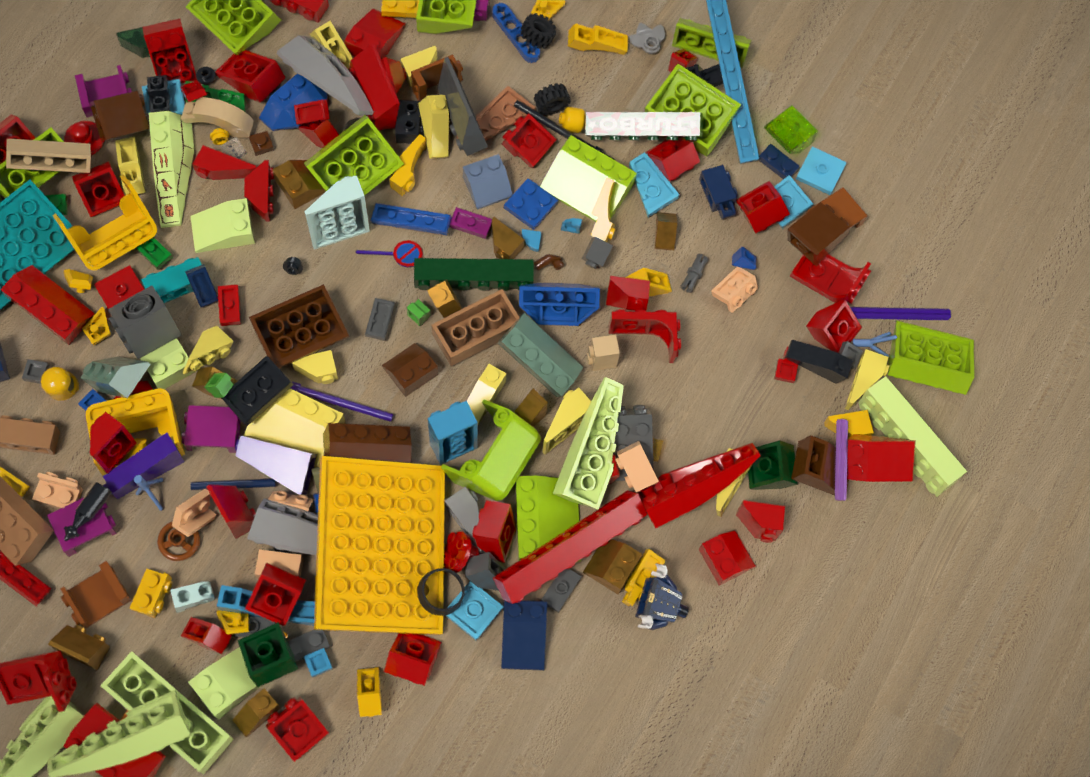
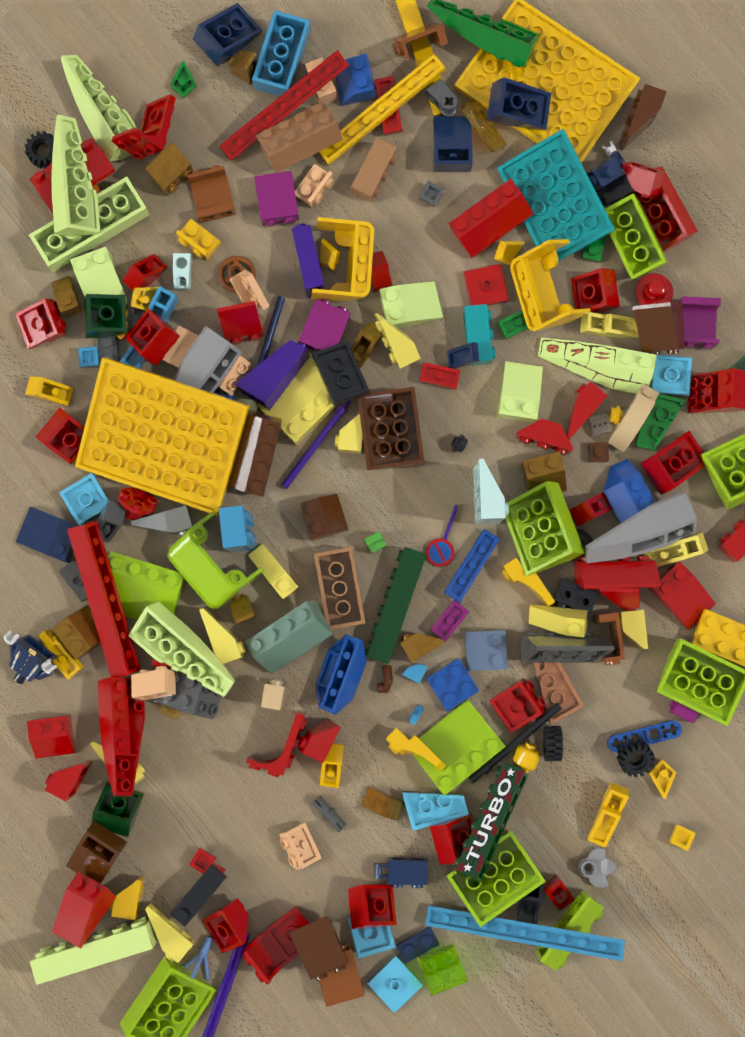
camera: 115 degrees right, 15 degrees up
(48, 155) = (633, 250): tan brick -> none
(56, 383) = (412, 208): yellow helmet -> none
(87, 509) = (281, 203): black wheel -> none
(90, 399) = (384, 235): blue plate -> none
(97, 327) = (457, 256): yellow piece -> none
(109, 441) = (332, 234): red slope -> none
(115, 375) = (398, 257): sand green slope -> none
(143, 322) = (440, 294): dark grey brick -> none
(144, 485) = (289, 257): medium blue plant -> none
(158, 93) = (675, 370): black slope -> none
(193, 91) = (665, 401): red tile -> none
(205, 80) = (682, 421): black plate -> none
(219, 385) = (356, 342): bright green piece -> none
(311, 112) = (607, 505): red tile -> none
(379, 319) = (381, 505): dark grey plate -> none
(430, 608) = (124, 475): black tyre -> none
(444, 298) = (375, 568): pearl gold slope -> none
(495, 529) = (143, 539): red slope -> none
(596, 253) = (377, 727): dark grey brick -> none
(744, 259) = (326, 867): blue slope -> none
(841, 460) = (93, 873): medium lavender axle -> none
(851, 352) = (196, 928): dark grey plate -> none

